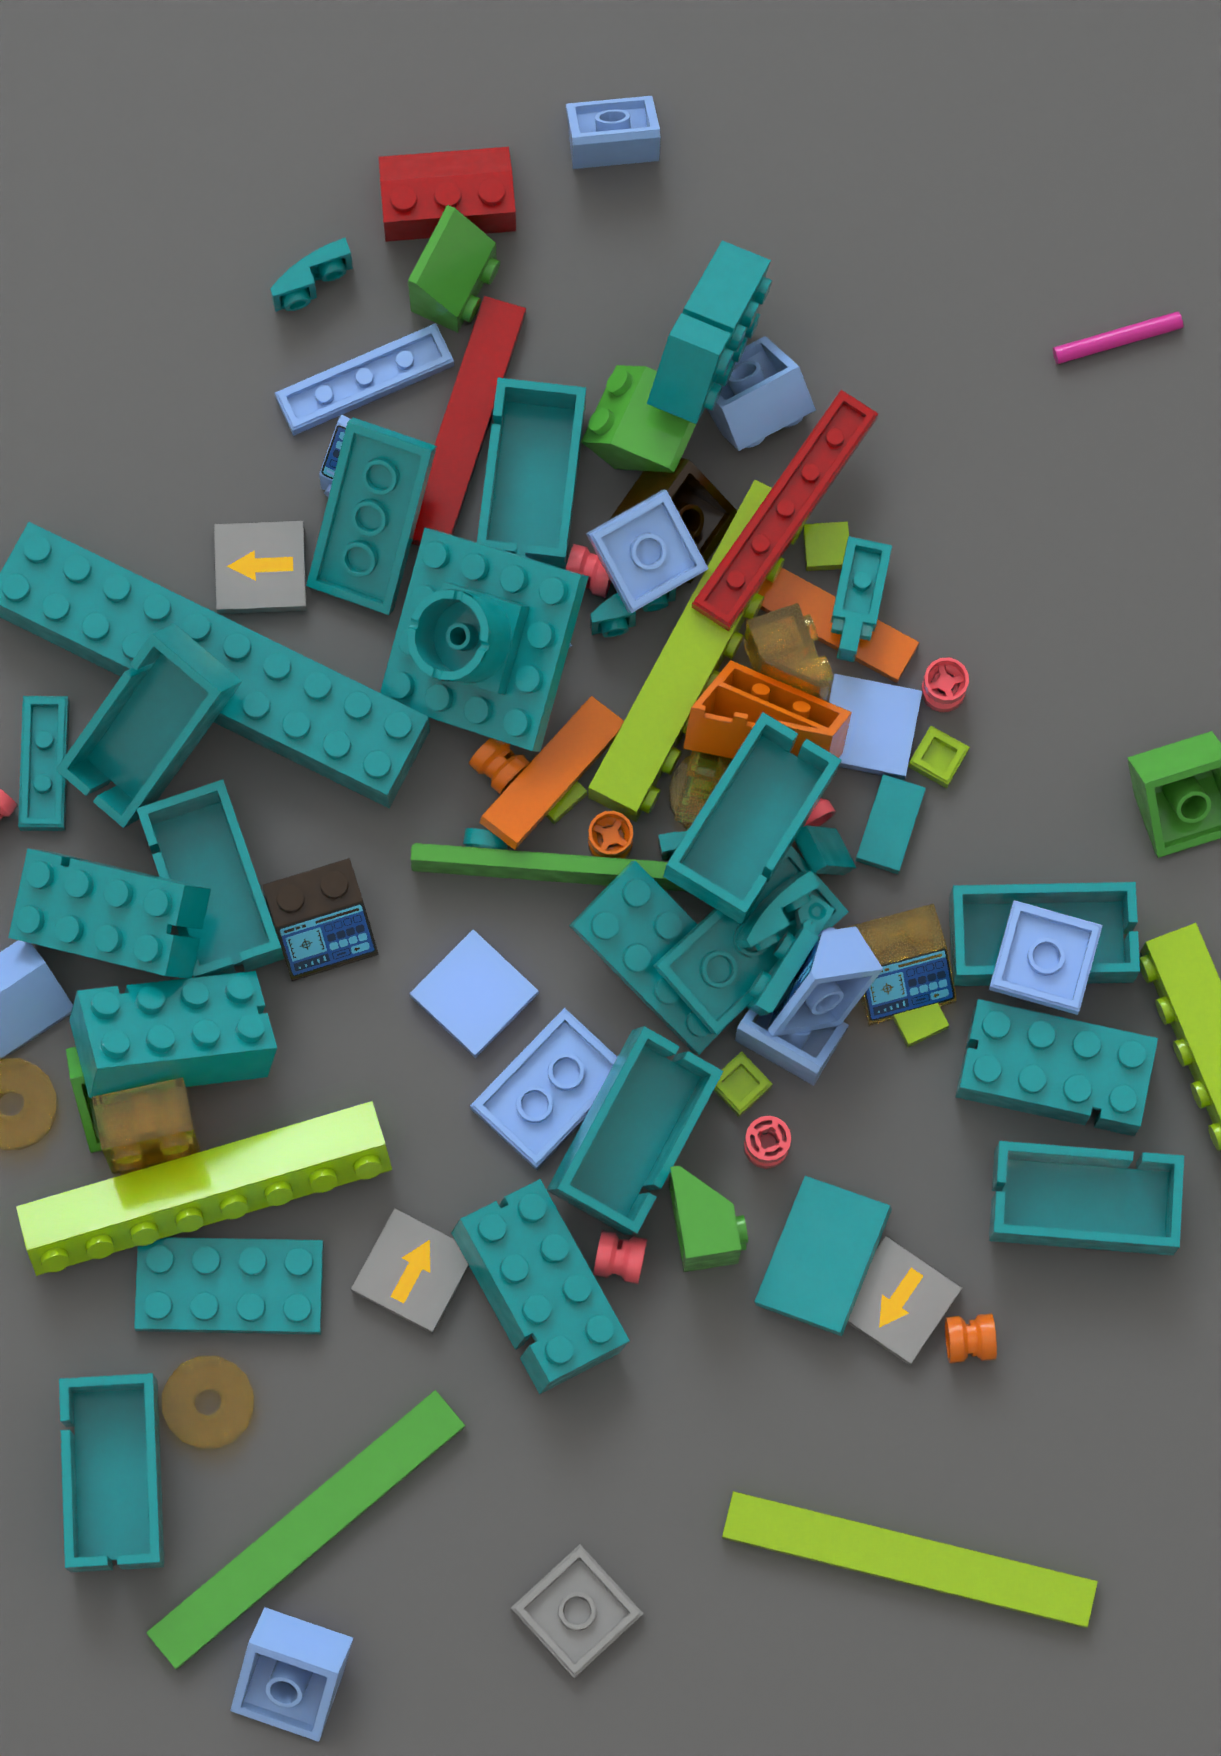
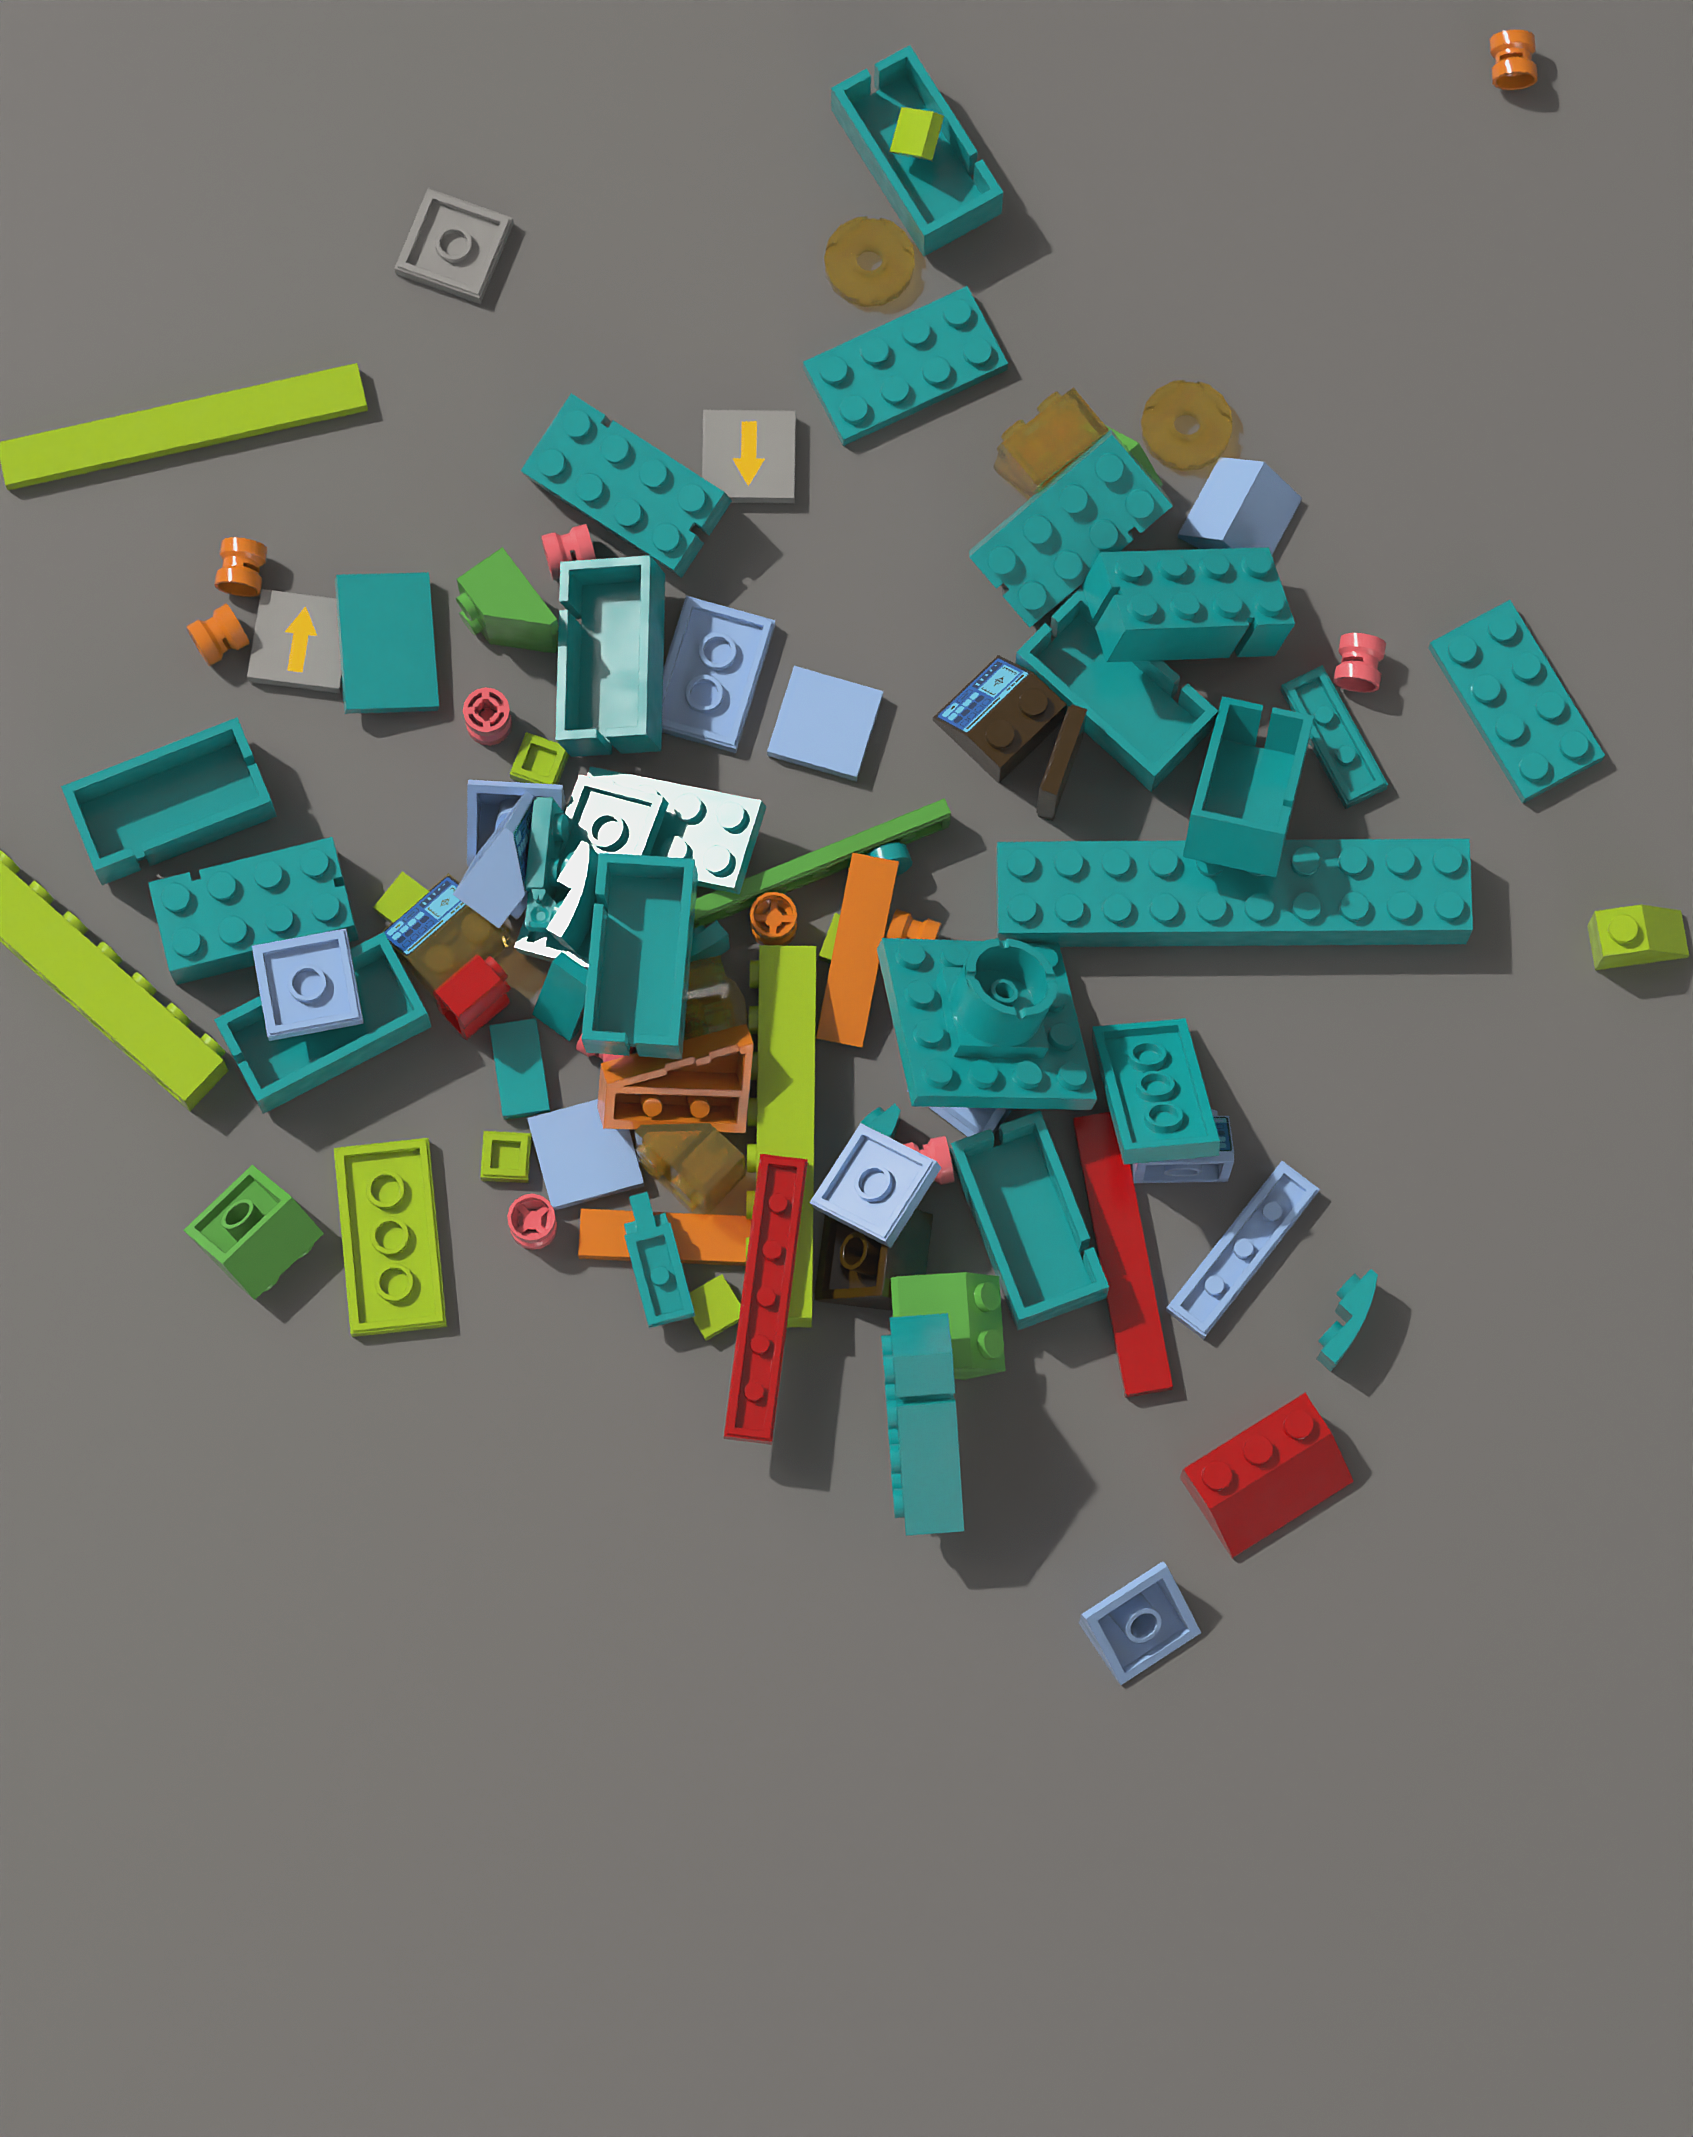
camera: 155 degrees right, 0 degrees up
(105, 1479) = (916, 133): none -> lime tile
(203, 1188) = (969, 426): lime brick -> none
(260, 567) = (1239, 1016): light grey tile -> none
(291, 1674) = (673, 75): light blue slope -> none
(293, 839) = (1061, 762): none -> dark brown tile
(305, 1530) = (724, 200): bright green tile -> none
(452, 271) = (1212, 1385): bright green slope -> none
(761, 396) = (849, 1418): light blue slope -> none
(903, 887) = (473, 995): none -> red brick
(920, 1391) = (241, 567): none -> orange wheel
(1069, 738) = (390, 1237): none -> lime tile
(1118, 337) = (533, 1665): dark pink bar -> none

